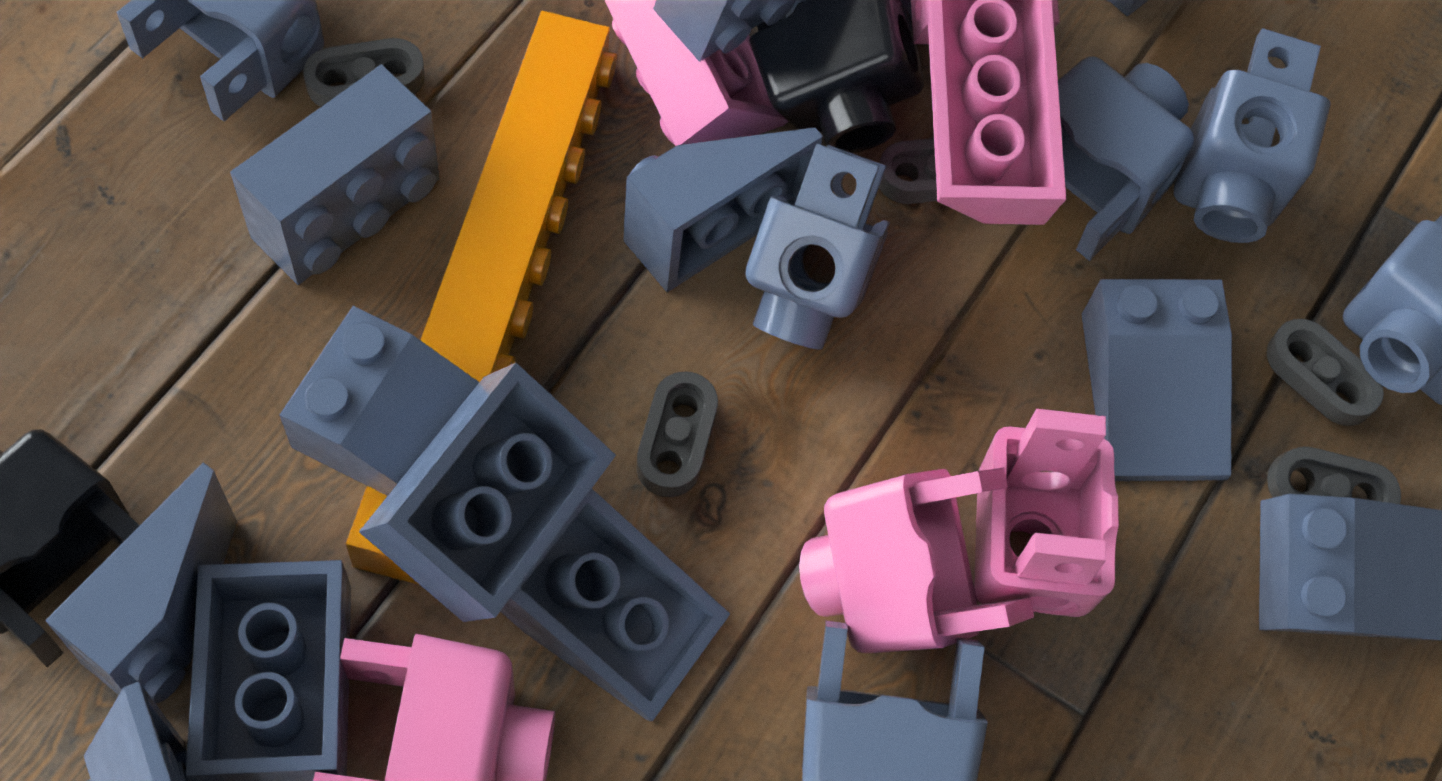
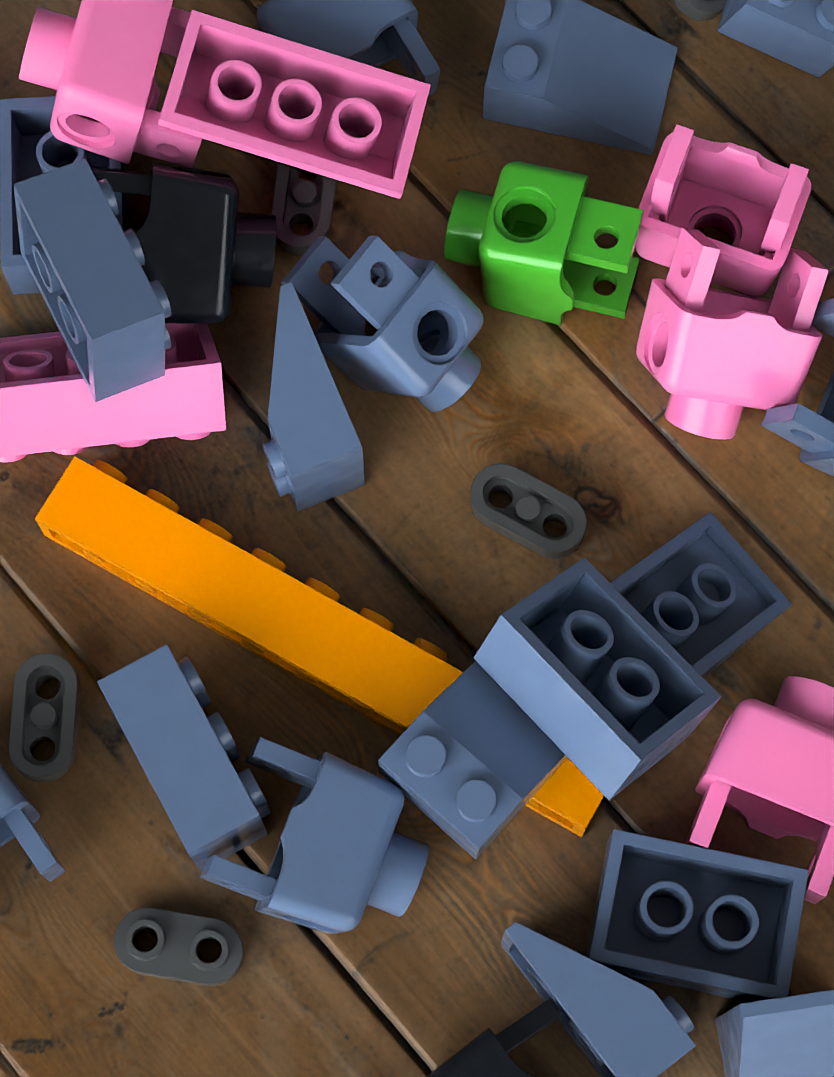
camera: 65 degrees left, 10 degrees up
(171, 225) = (178, 945): none -> dark grey plate
(269, 306) = (333, 848): none -> sand blue piece
(976, 360) = (541, 246): none -> bright green piece

